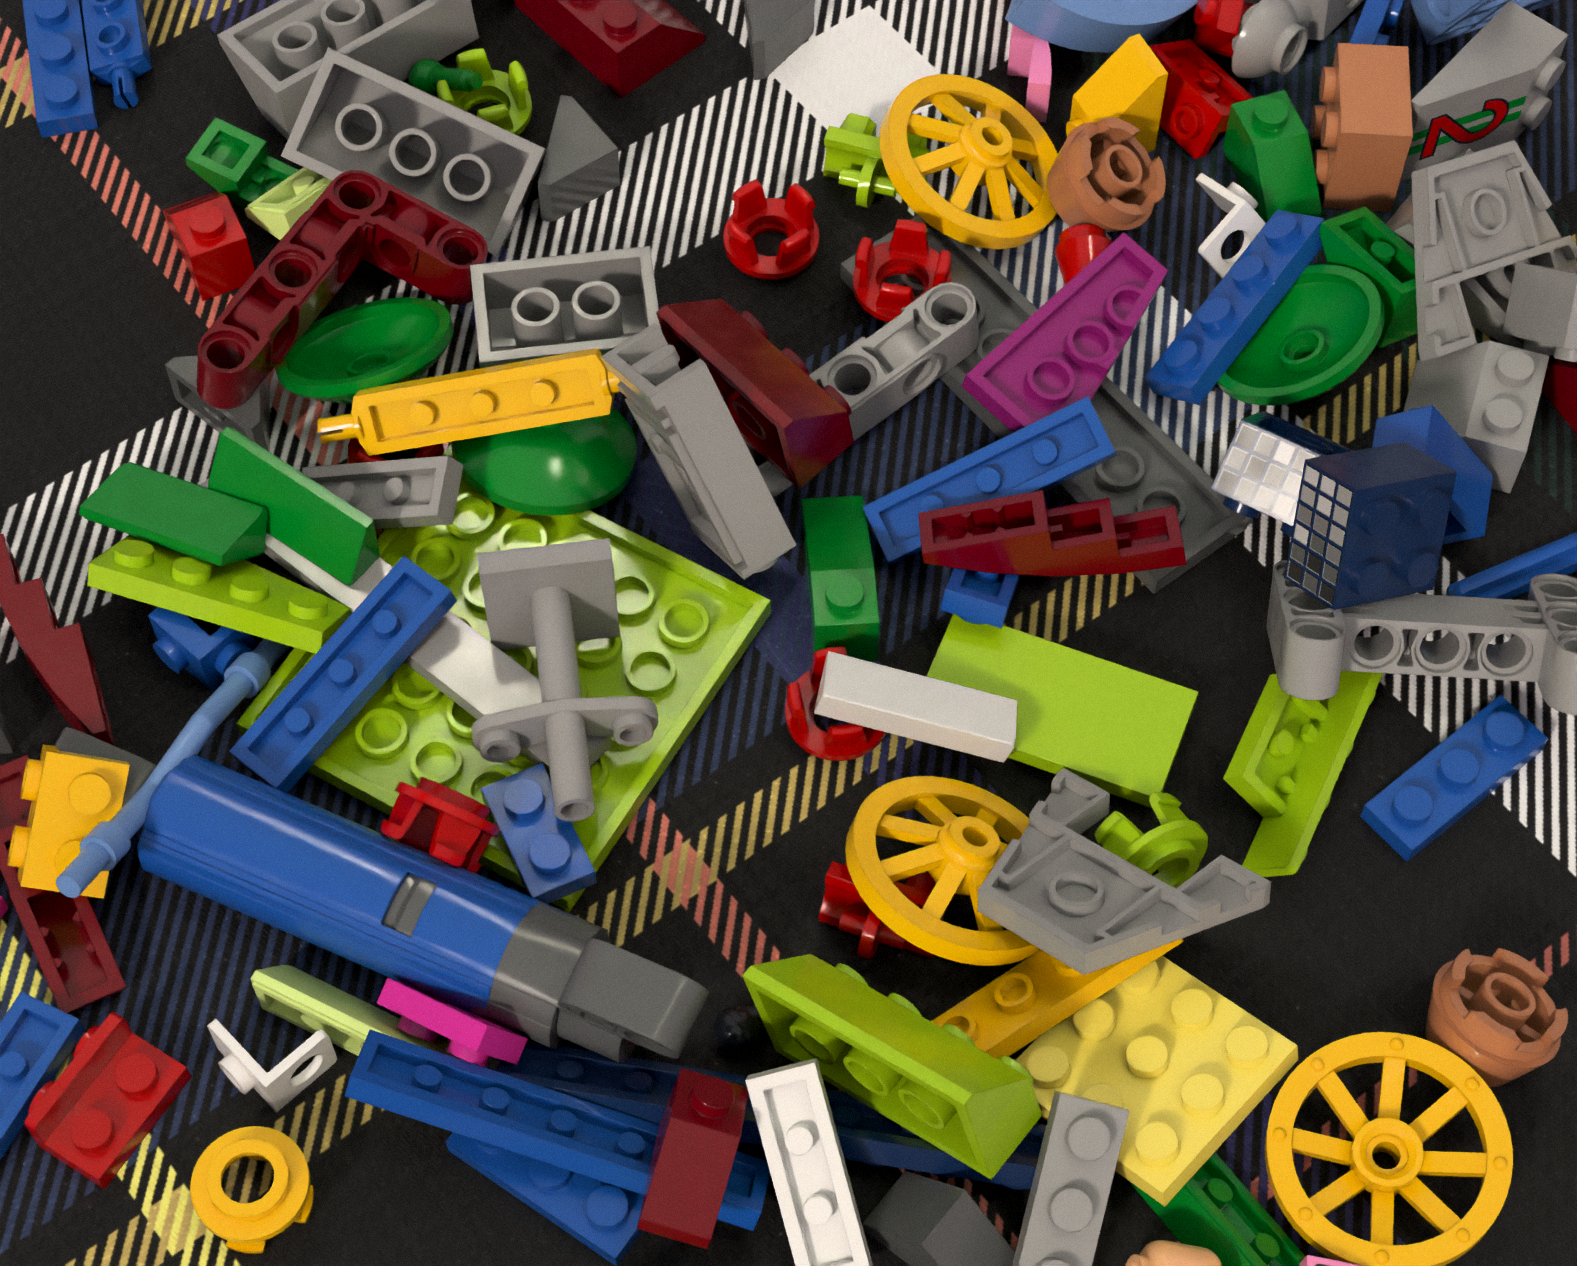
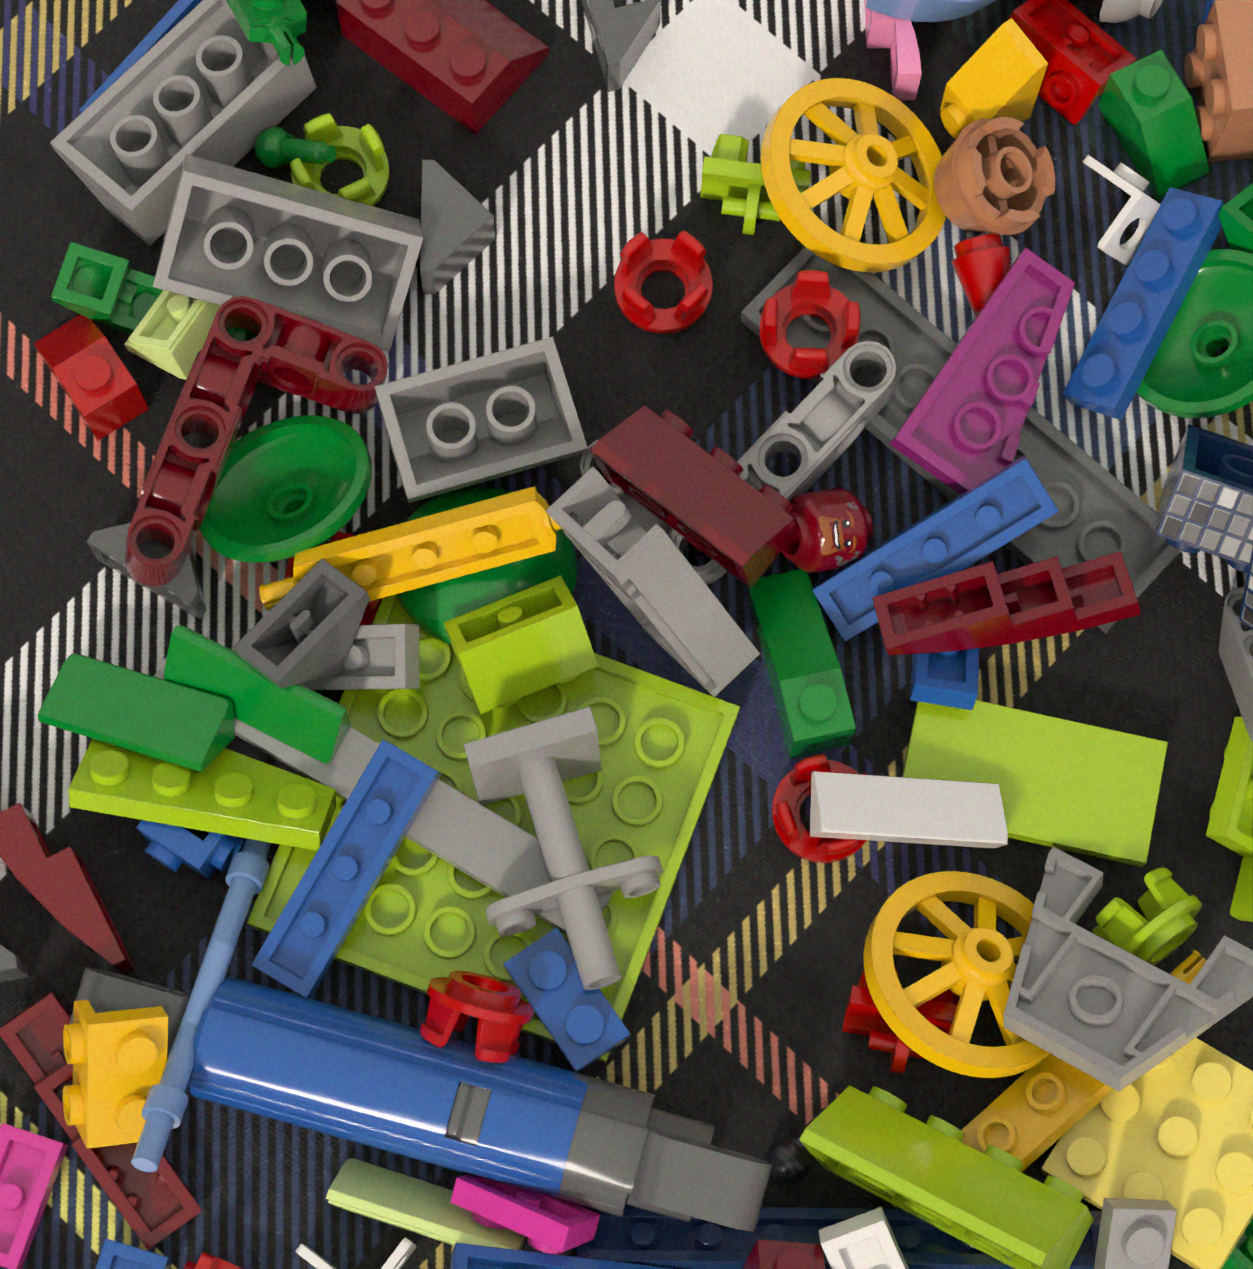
camera: 10 degrees left, 15 degrees up
(354, 449) = (307, 629): none -> dark grey slope
(562, 499) = (521, 644): none -> lime brick
(885, 454) = (830, 530): none -> dark red head

